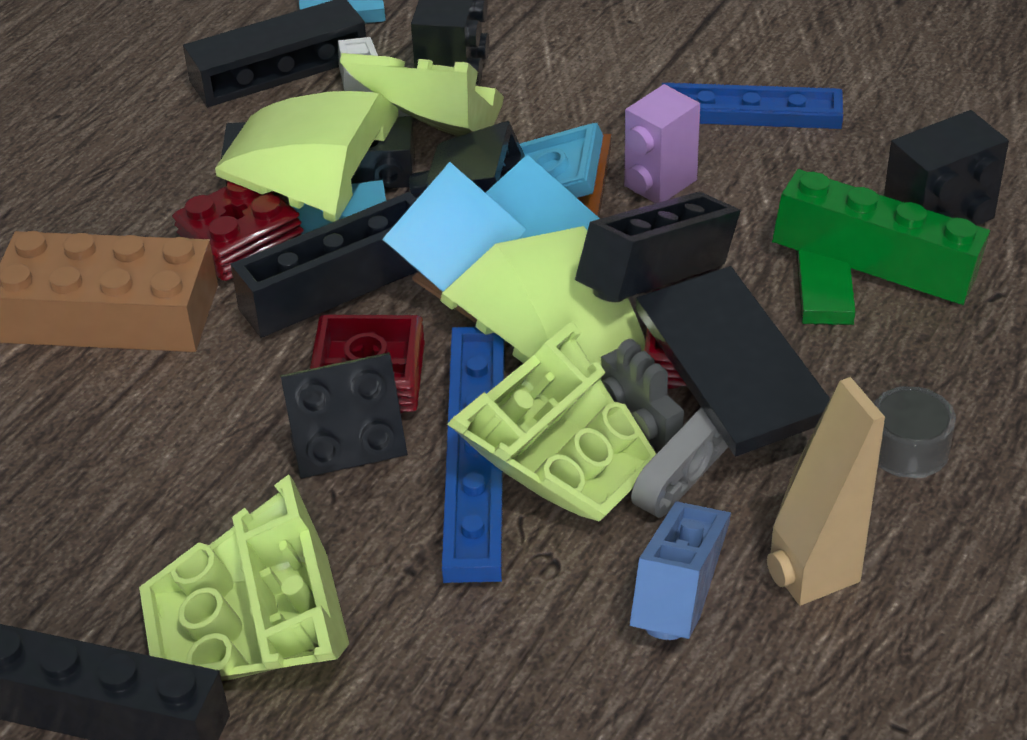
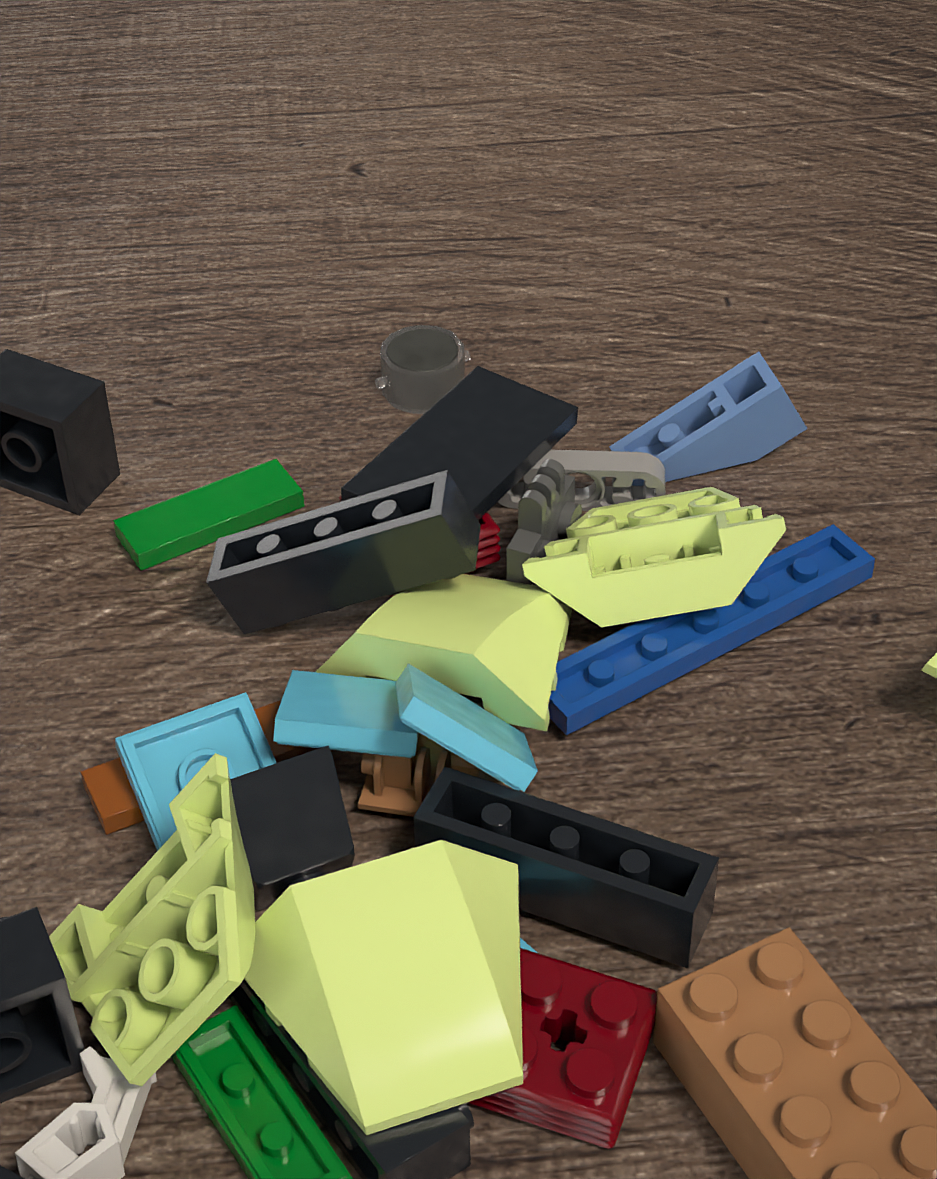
camera: 125 degrees left, 0 degrees up
(344, 415) = (780, 710): black hinge -> none
(361, 336) = (683, 758): dark red brick -> none
(661, 144) = (120, 663): lavender brick -> none
(829, 500) = (613, 318): tan wedge -> none
(881, 235) = (162, 460): green brick -> none

